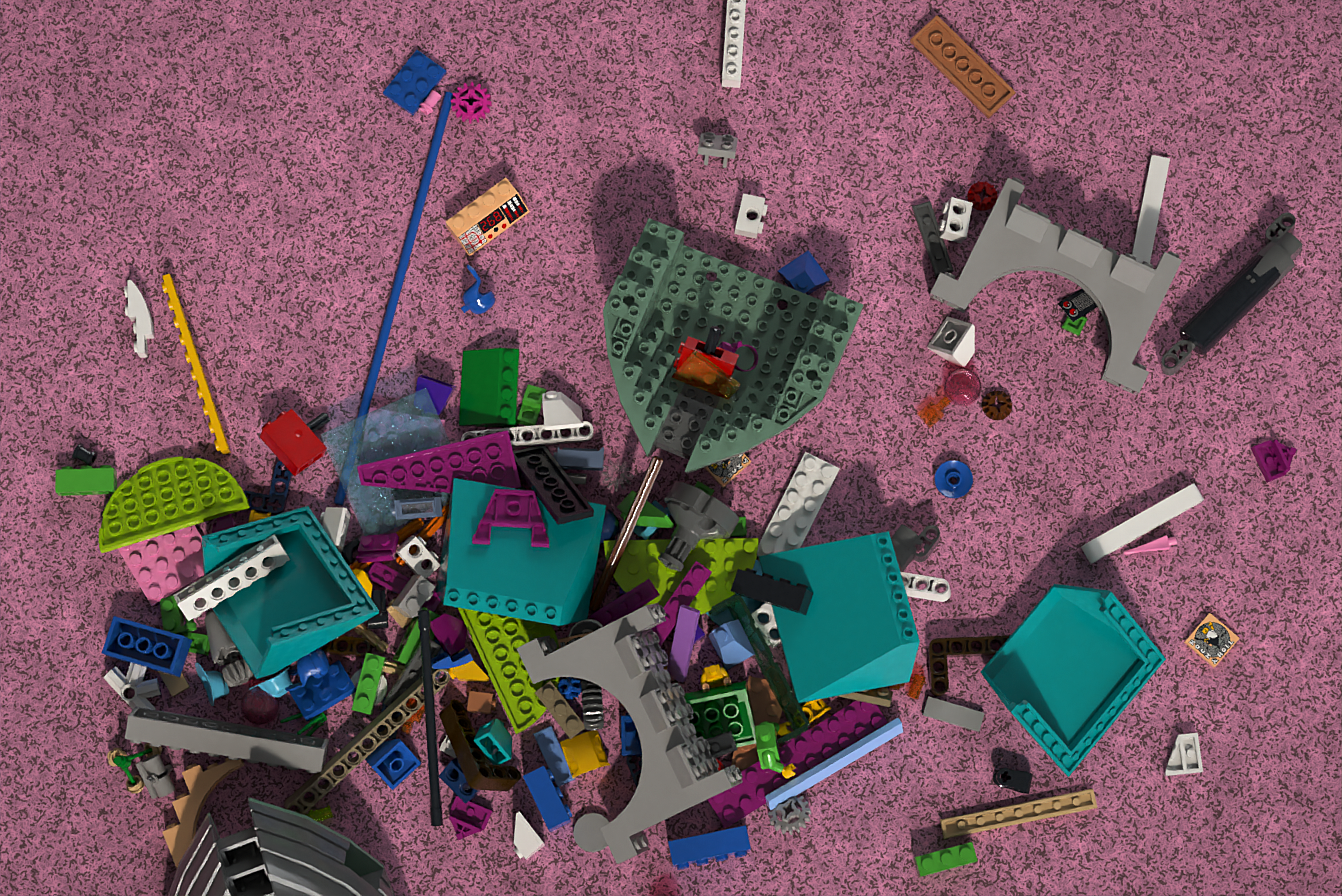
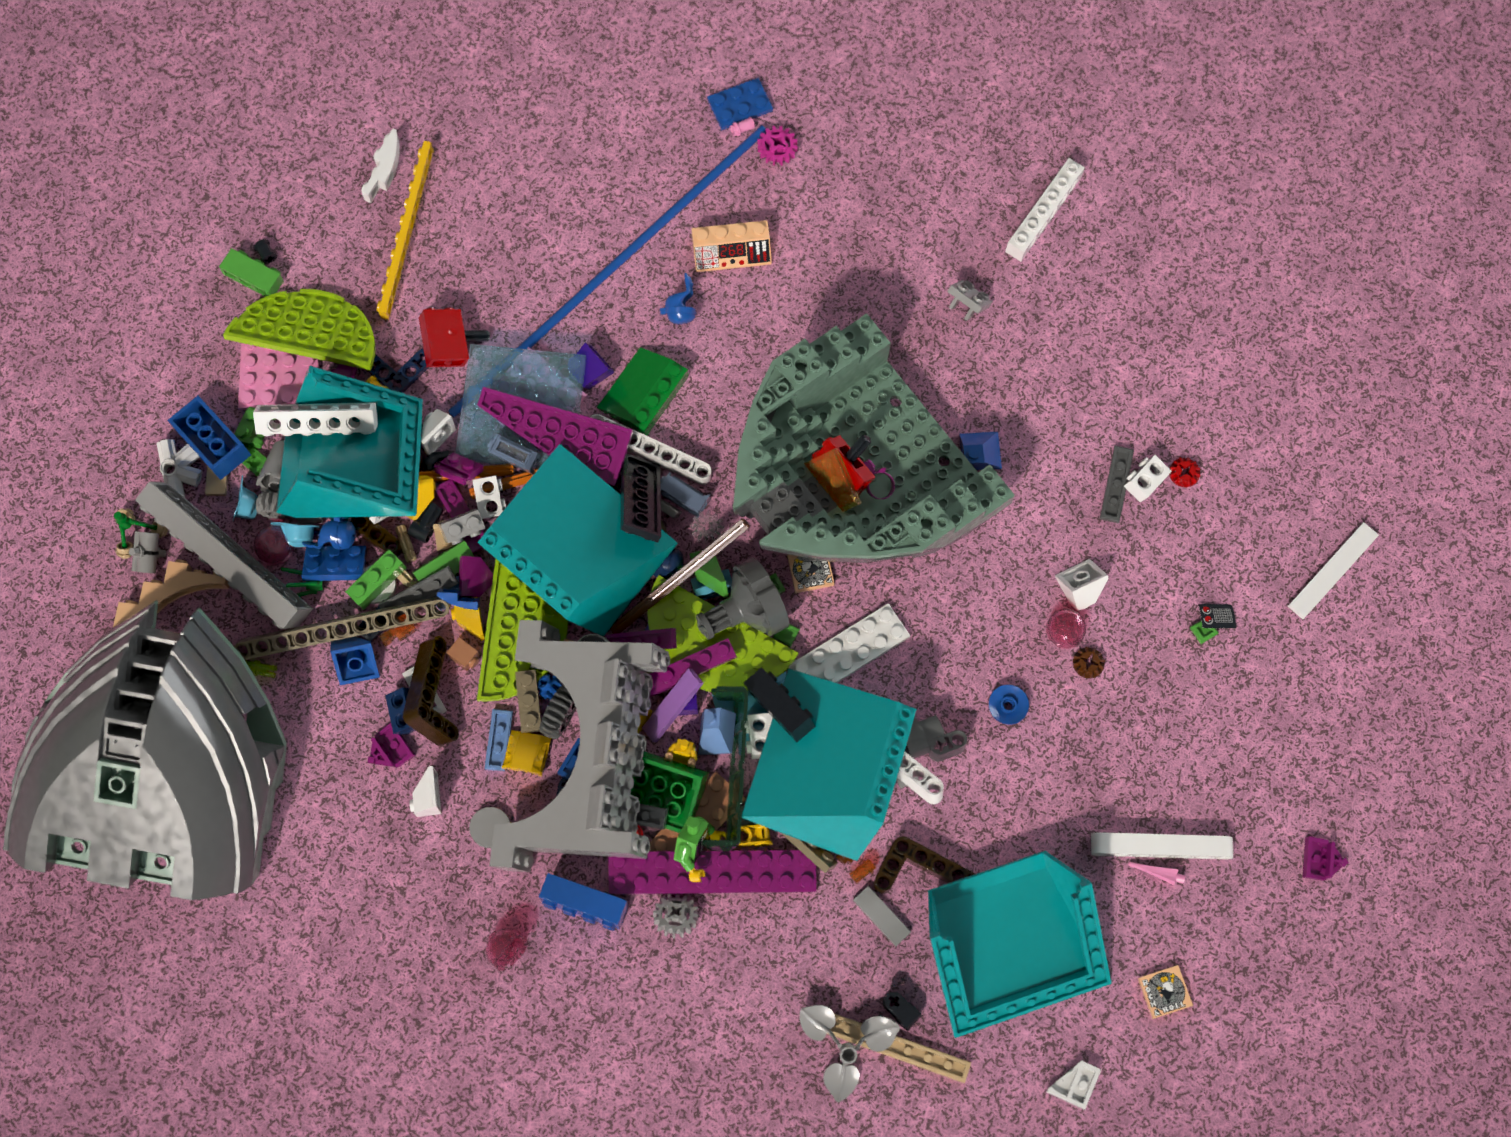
camera: 30 degrees right, 5 degrees down
(424, 627) = (366, 722): black piece -> none
(494, 741) = (452, 693): teal torso -> none
(512, 509) = (590, 497): magenta wing -> none
(531, 406) = (670, 425): bright green slope -> none
(548, 798) = (467, 772): blue brick -> none
(560, 411) = (690, 443): white slope -> none
(749, 205) = (968, 363): white brick -> none
(834, 763) = (744, 895): light blue tile -> none
(932, 413) = (1024, 635): clear orange plate -> none
(945, 859) = (793, 1044): bright green brick -> none
(962, 67) = (1233, 351): nougat plate -> none
(1000, 862) = (843, 1078): none -> light grey plant
(1119, 285) = (1200, 528): light grey arch -> none
(1238, 295) = (1372, 690): piece -> none

